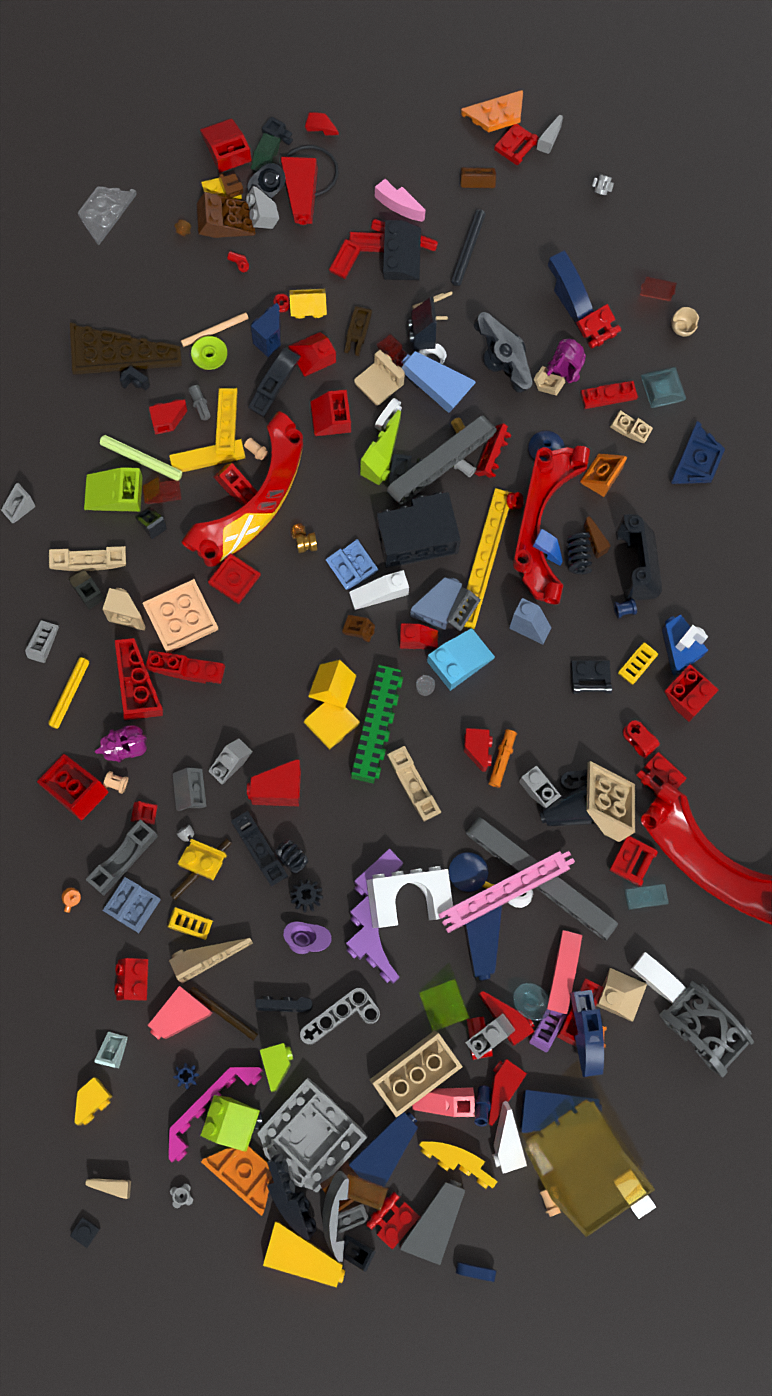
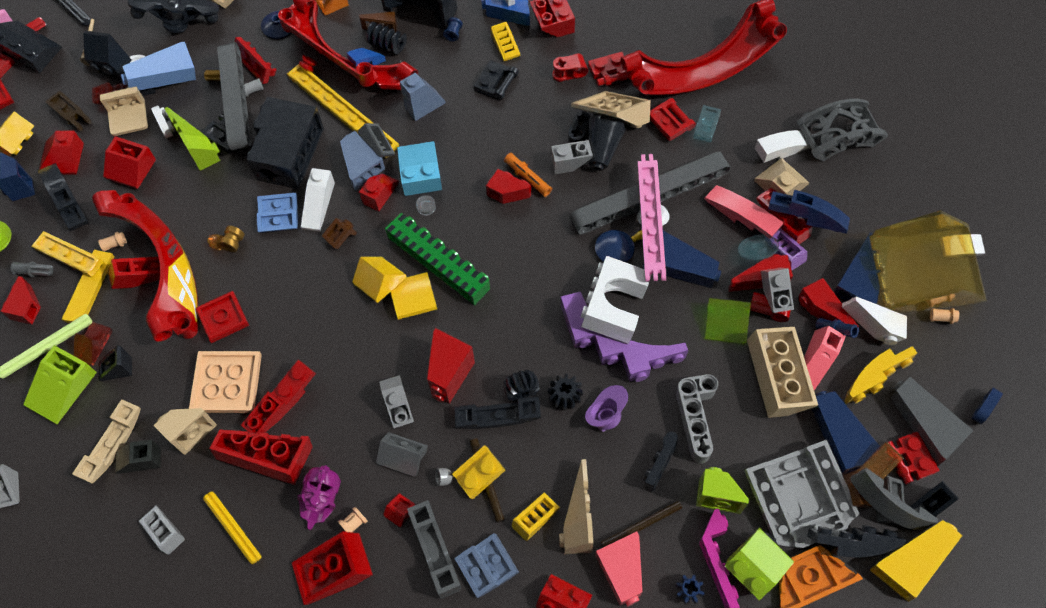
camera: 55 degrees left, 10 degrees down
(413, 784) = (512, 255): tan slope -> none

